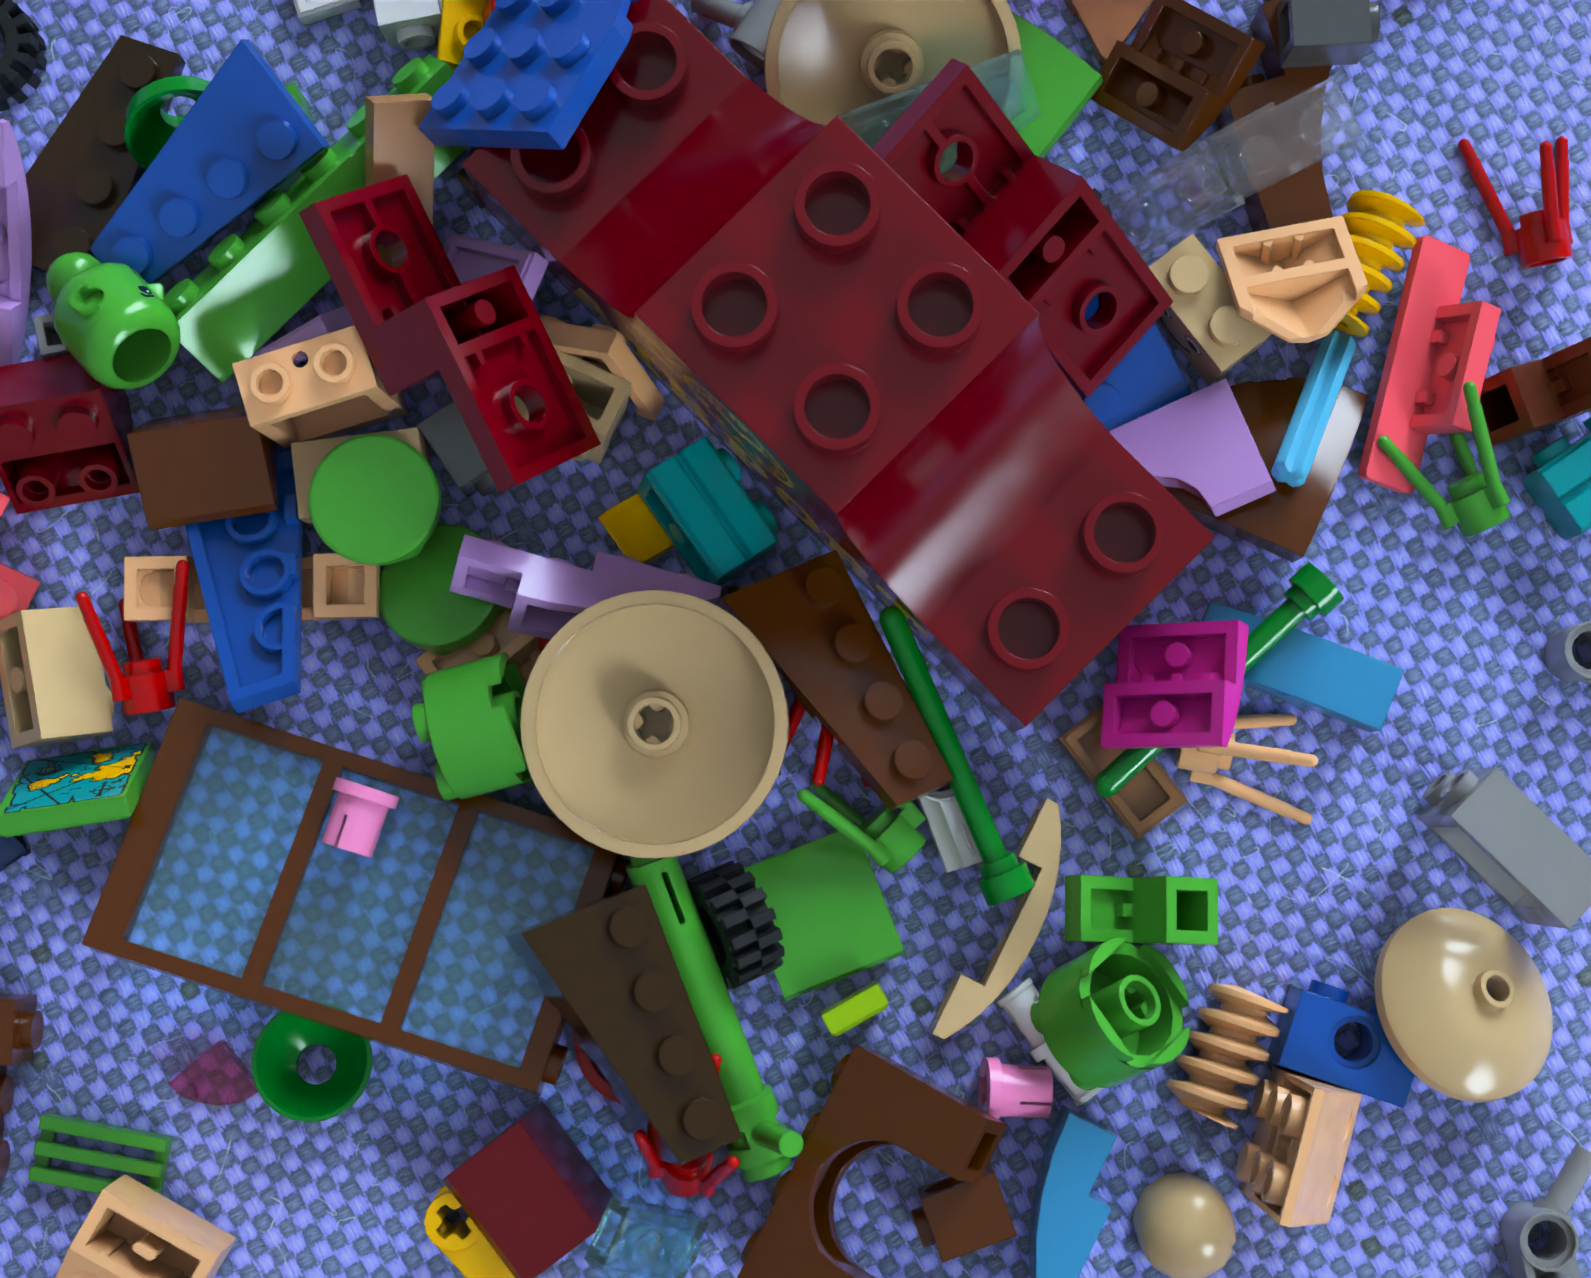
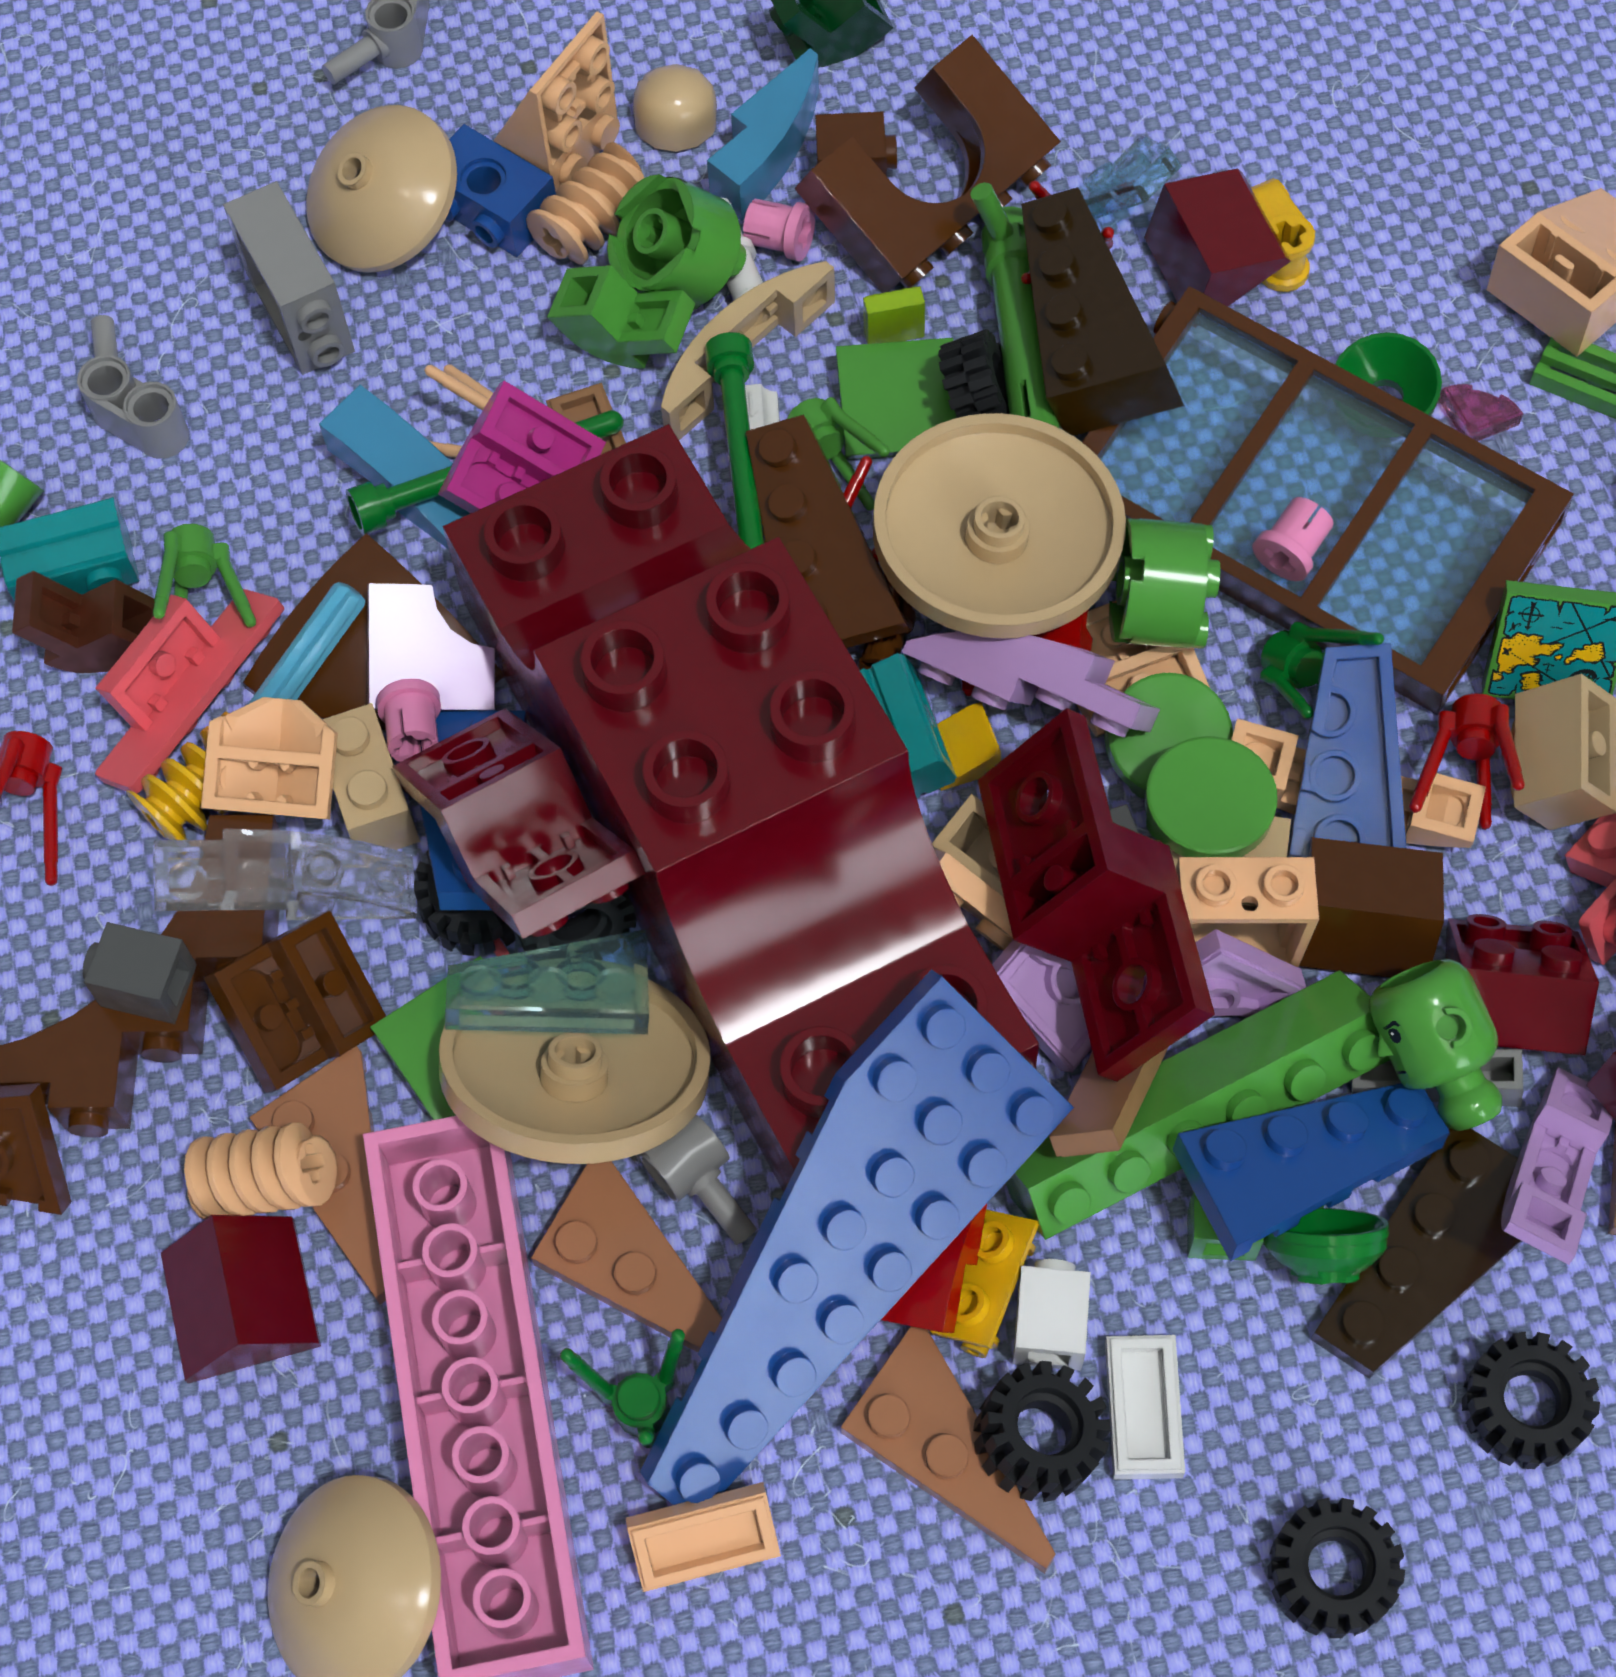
camera: 165 degrees left, 20 degrees down
(331, 709) = (1294, 659): none -> green plant
(1178, 368) = (409, 715): none -> bright pink bush

